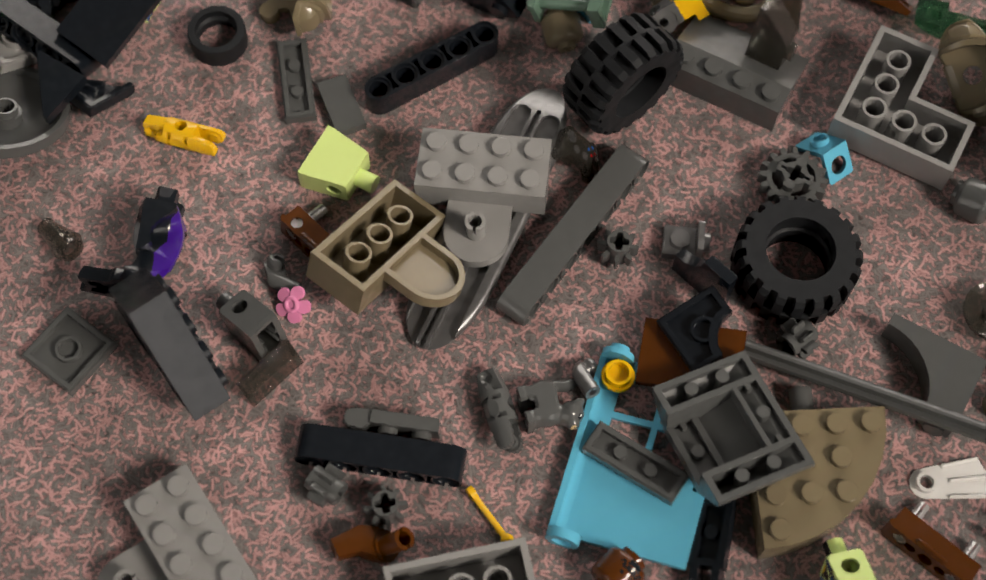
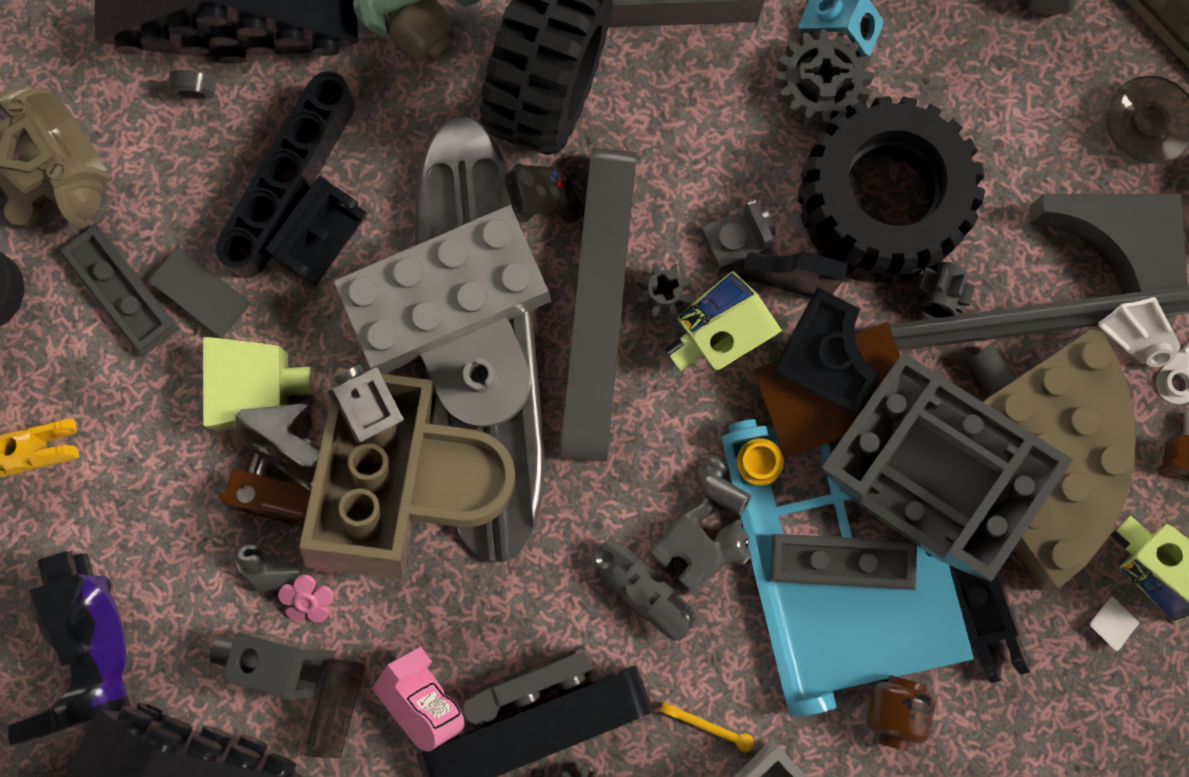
camera: 30 degrees left, 15 degrees up
(322, 392) = (418, 701): none -> bright pink leg
(336, 199) = (279, 438): none -> clear smoke slope
(398, 199) = (365, 402): none -> flat silver bracket
(429, 106) = (316, 231): none -> black hinge
(654, 276) = (723, 325): none -> yellowish green torso
(914, 428) = (1142, 332): none -> white piece

